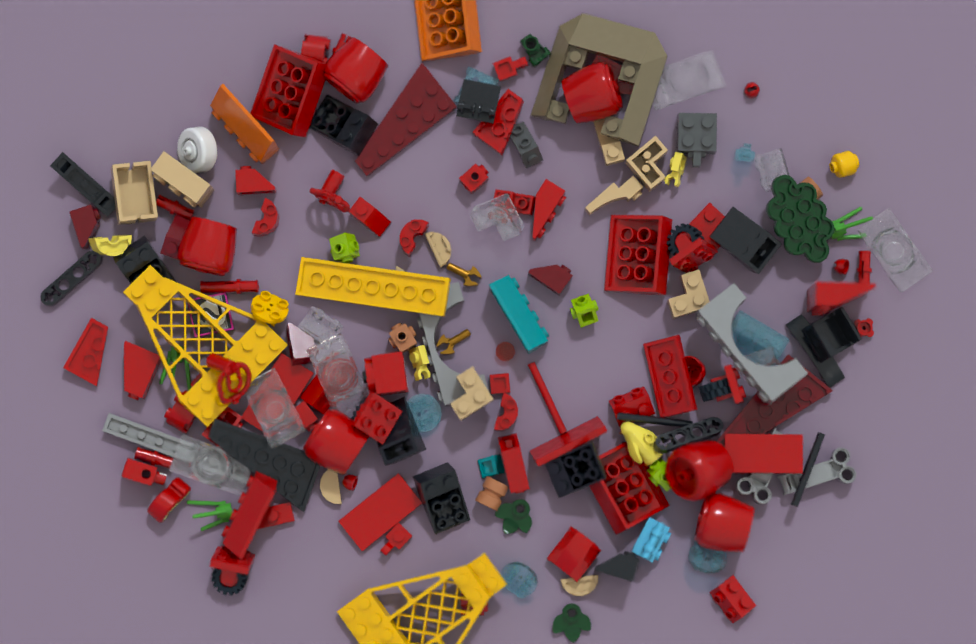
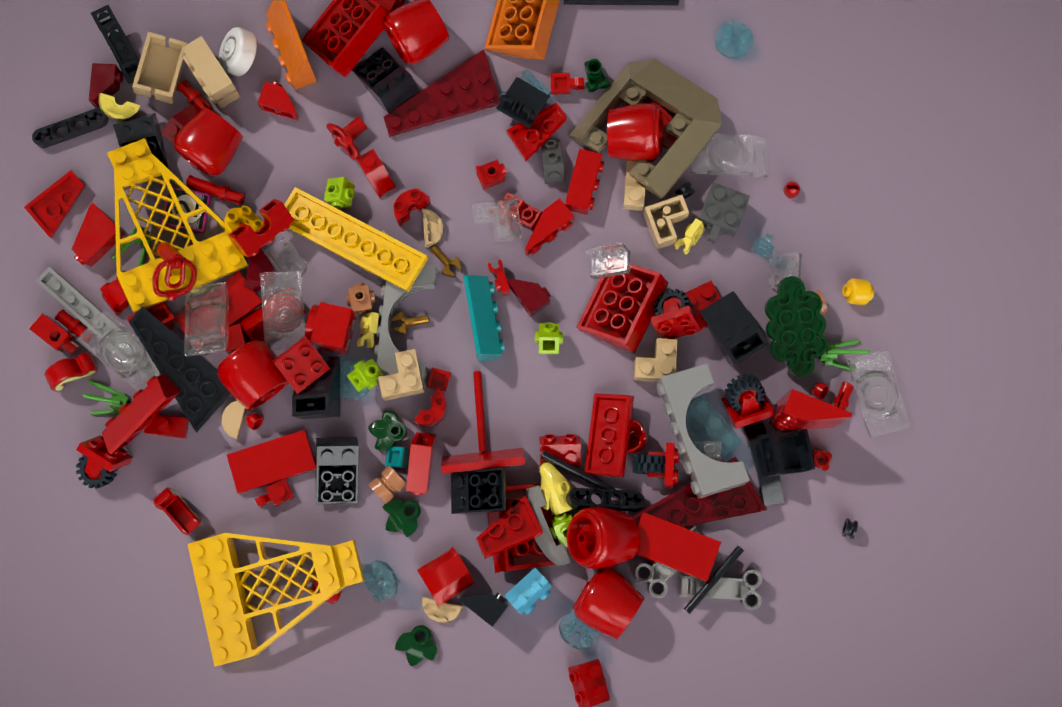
camera: 15 degrees right, 5 degrees down
(269, 222) = (278, 142): red cylinder -> none
(299, 296) = (275, 220): none -> red arch
(316, 586) = (177, 510): none -> red animal
(436, 405) = (365, 375): none -> lime brick
(469, 446) = (384, 431): none -> dark green plate
(505, 351) = (456, 350): clear red tile -> none
(522, 275) = (501, 282): none -> red plate
(561, 154) = (584, 181): none -> red brick
(612, 219) = (609, 260): none -> clear bracket
(617, 492) = (510, 530): none -> red wing
(629, 190) = (635, 240): tan slope -> none
(639, 480) = (555, 553): none -> light grey slope
(656, 128) = (685, 190): none -> black bush
(780, 302) = (746, 401): none -> plate
(910, 379) = (849, 528): none -> black bush

